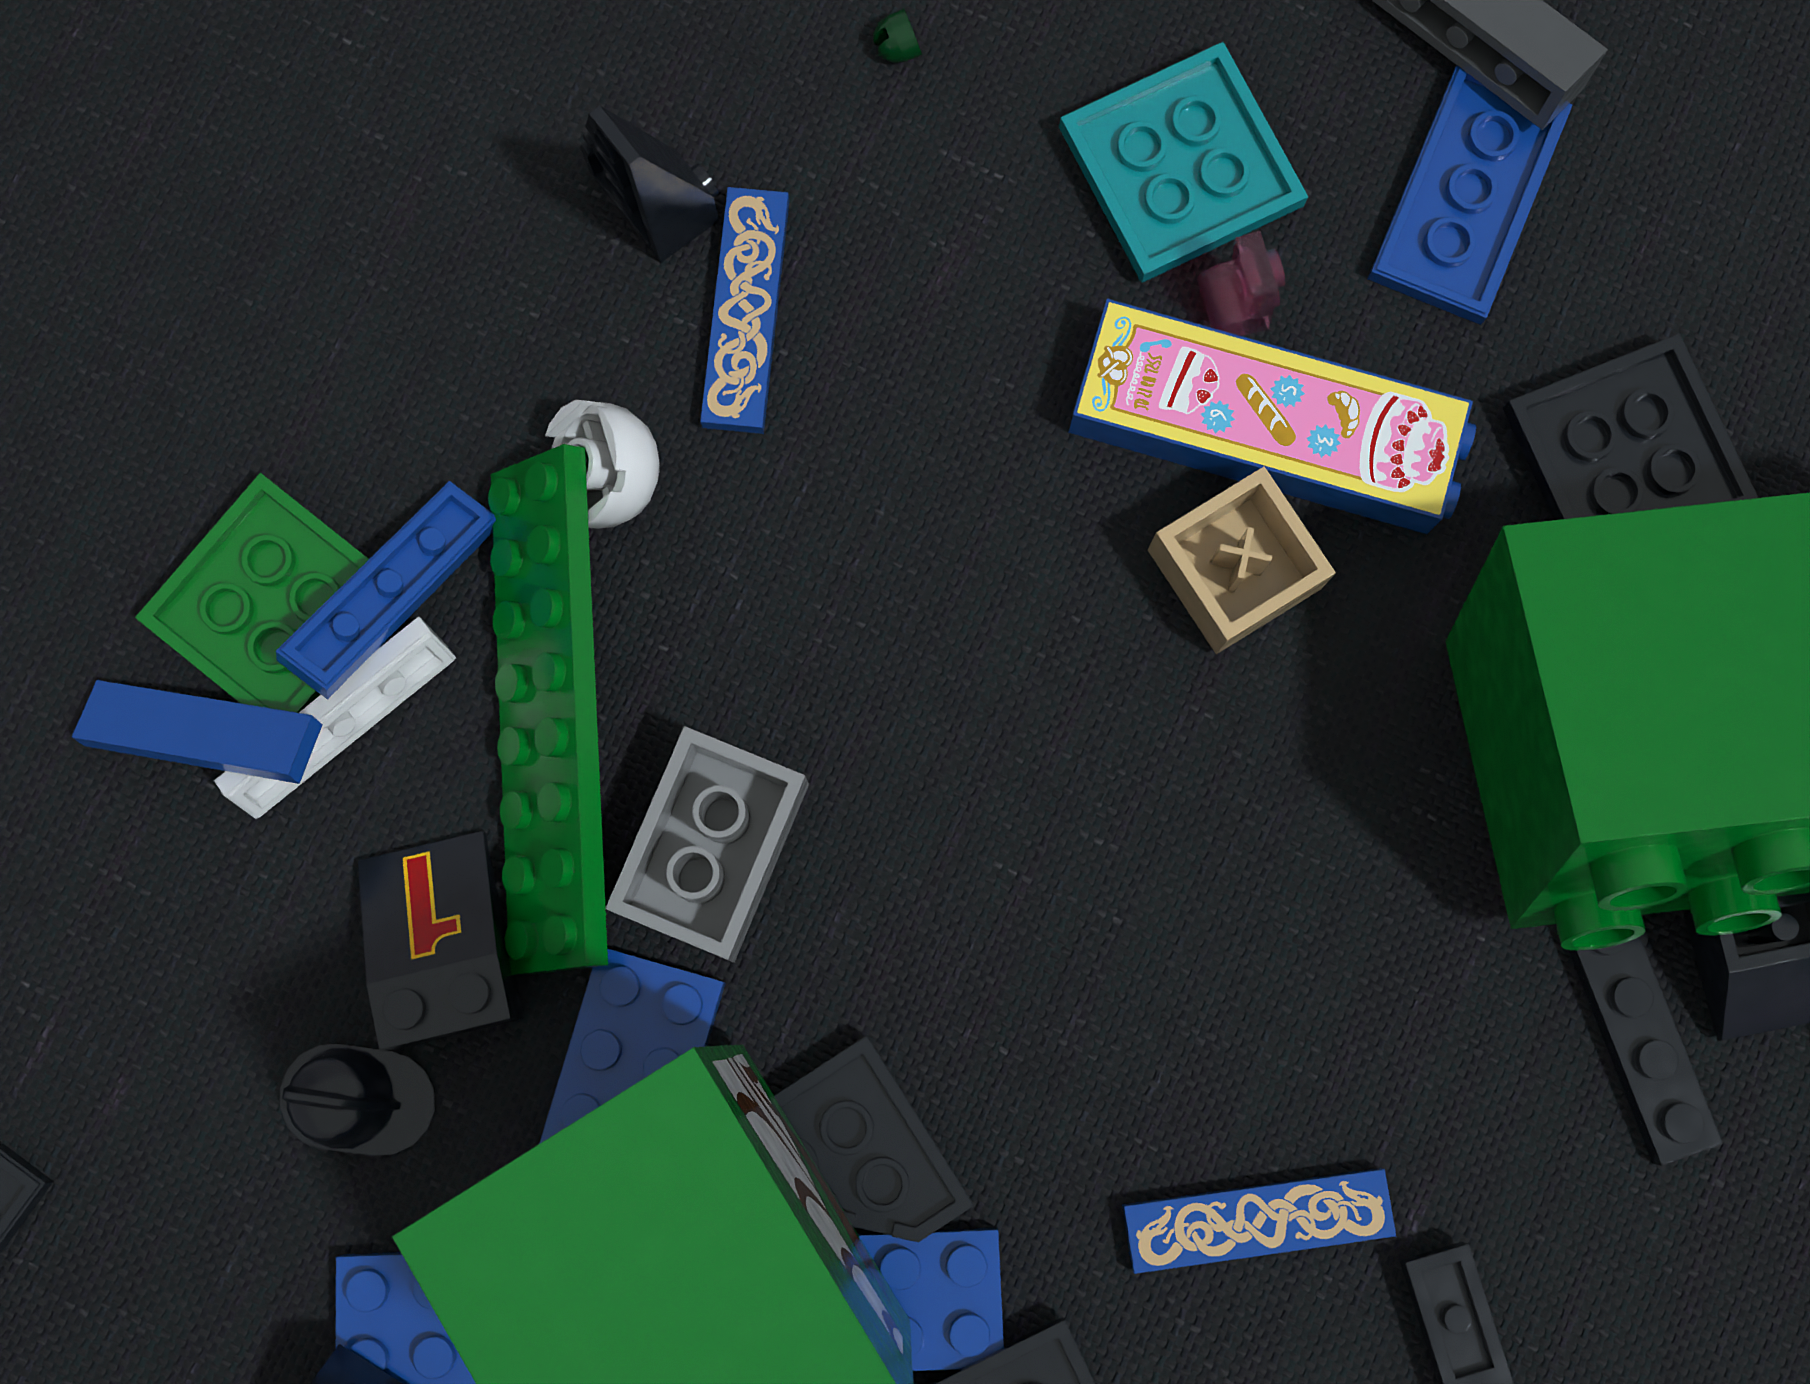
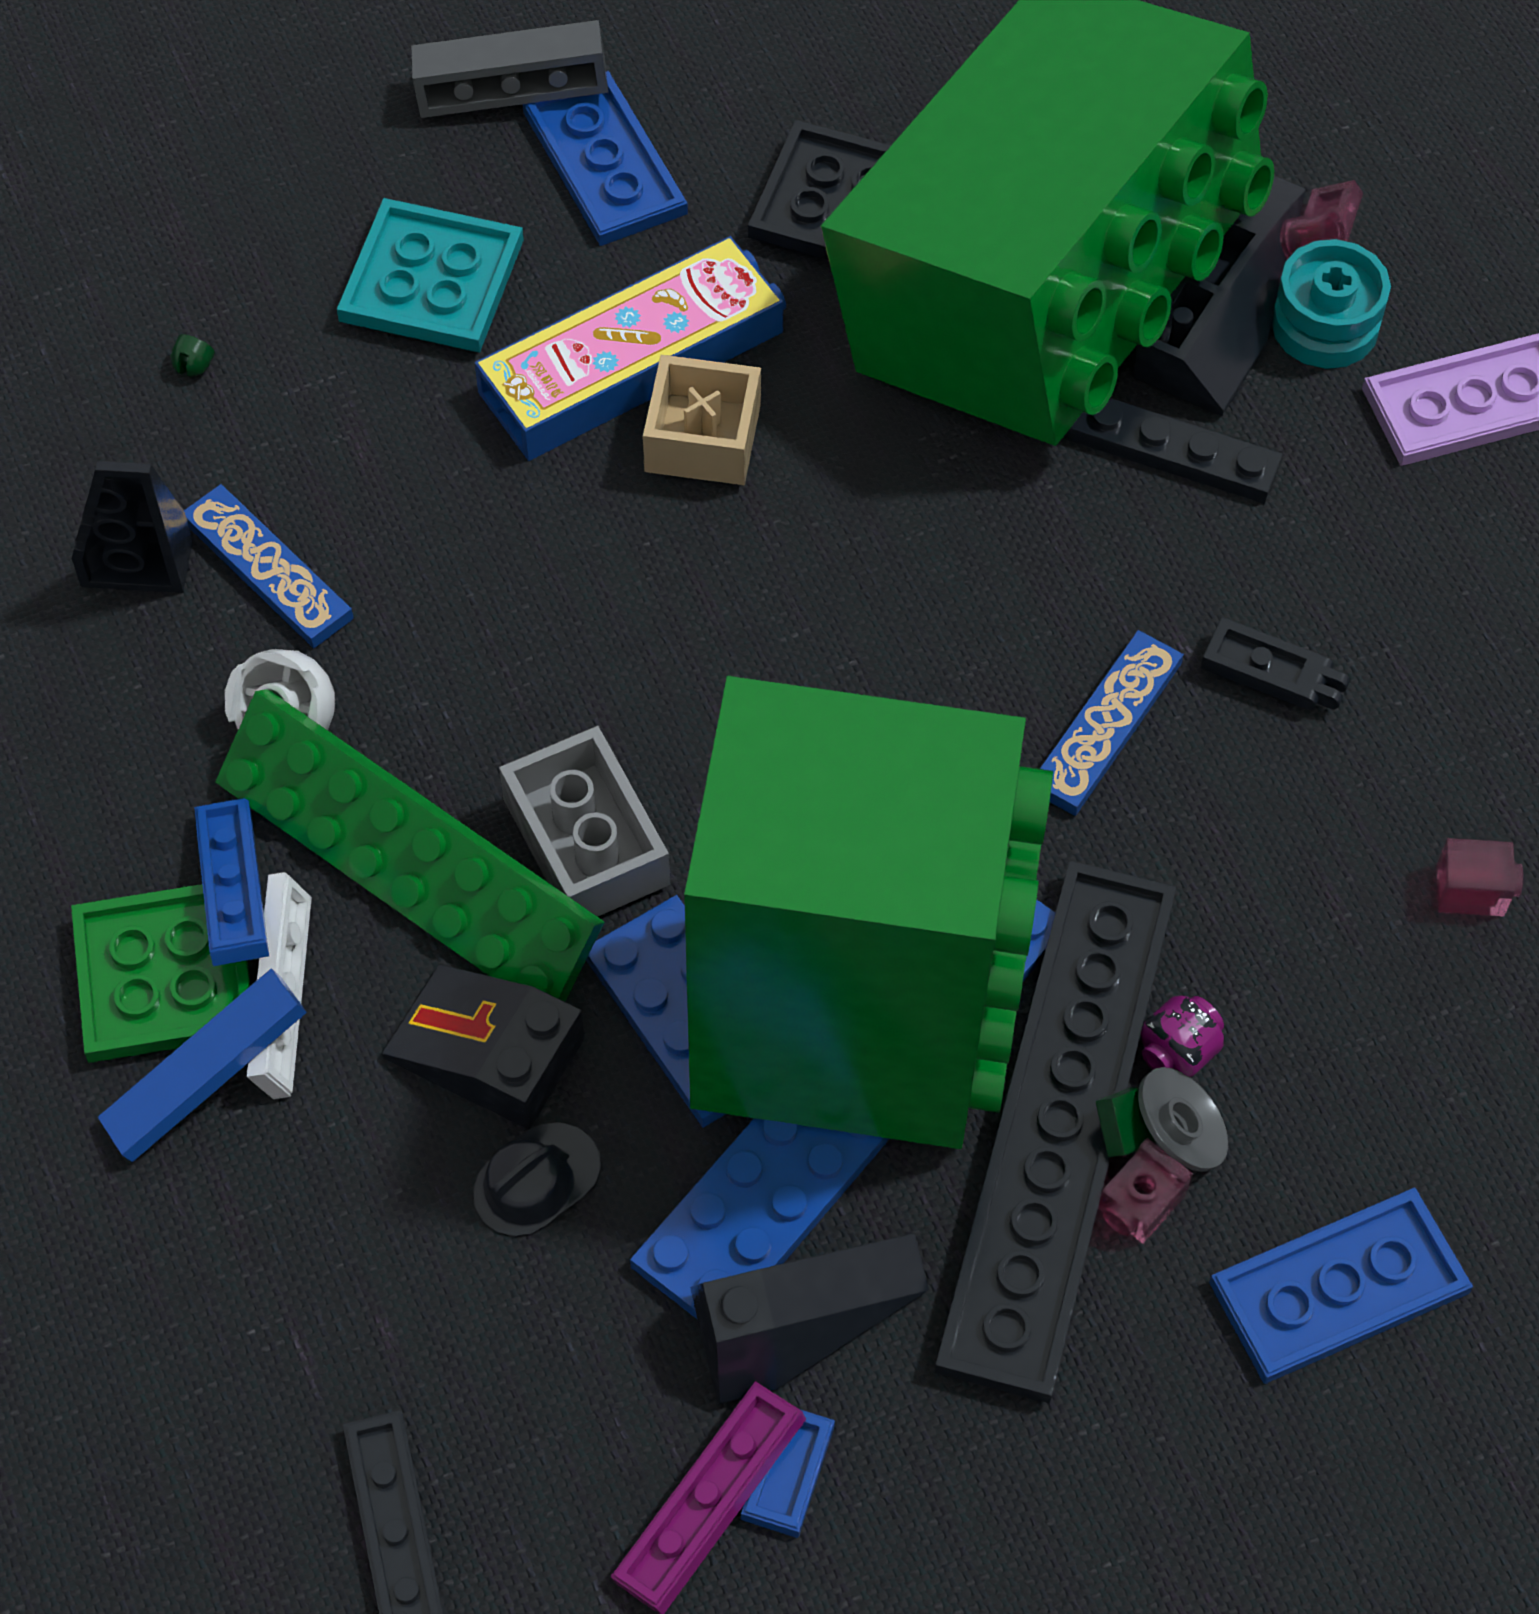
camera: 50 degrees left, 20 degrees down
(1243, 290) = (544, 289): clear pink plate -> none

